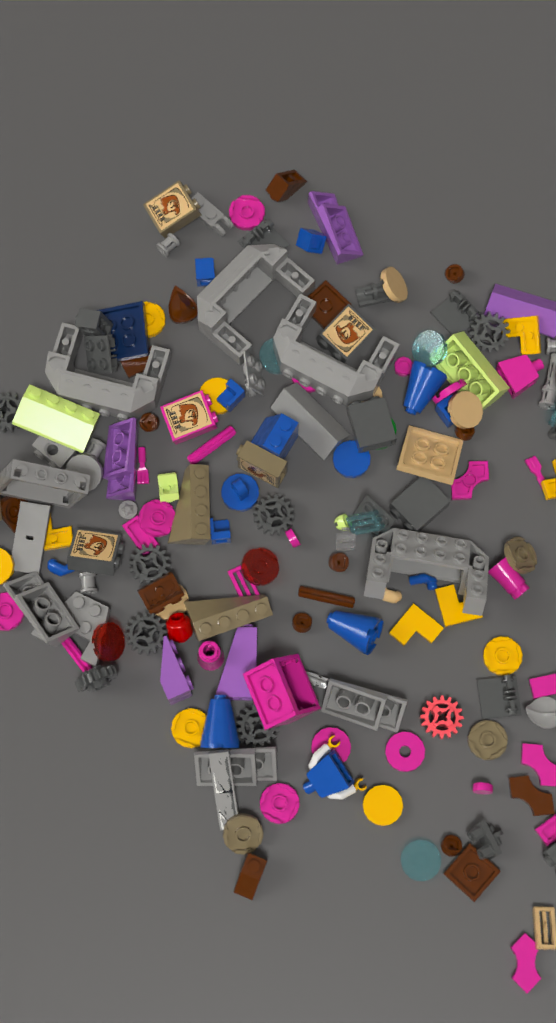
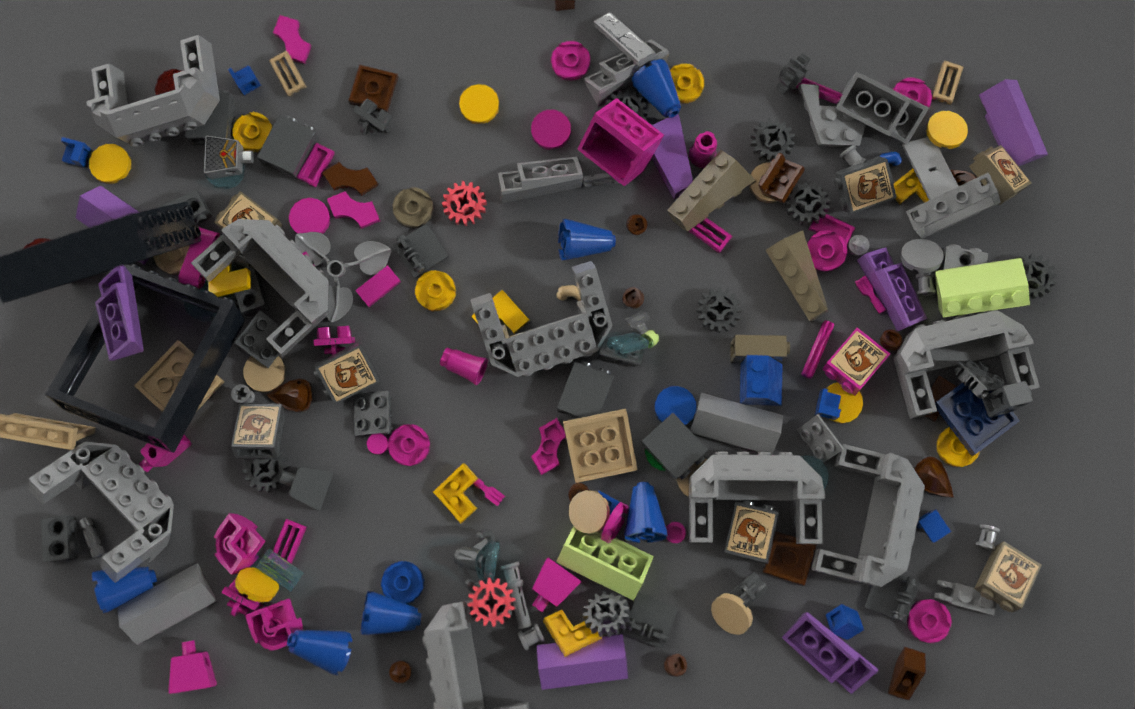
camera: 155 degrees right, 5 degrees up
(108, 641) = (802, 112): clear red tile -> none
(168, 487) = (833, 283): yellowish green bracket -> none
(172, 677) = (726, 112): medium lavender slope -> none
(179, 627) = (748, 157): red head -> none
(220, 531) = (761, 269): blue panel -> none
(240, 492) = (763, 316): blue tile -> none
(242, 833) = (588, 17): dark tan tile -> none
(259, 566) = (704, 255): clear red tile -> none
(292, 538) = (689, 297): dark pink tile -> none
(327, 597) = (627, 260): reddish brown axle -> none
(329, 775) = (537, 99): blue torso -> none
(409, 740) = (479, 148): dark pink tile -> none
(415, 621) = (533, 280): yellow tile -> none
(420, 860) = (422, 75): clear light blue tile -> none
(424, 578) = (534, 322): blue arm -> none
(429, 348) = (658, 561): clear light blue tile -> none
(451, 845) = (401, 100): reddish brown tile -> none
(482, 788) = (397, 161): dark pink tile -> none
(520, 555) = (463, 391): dark tan tile -> none

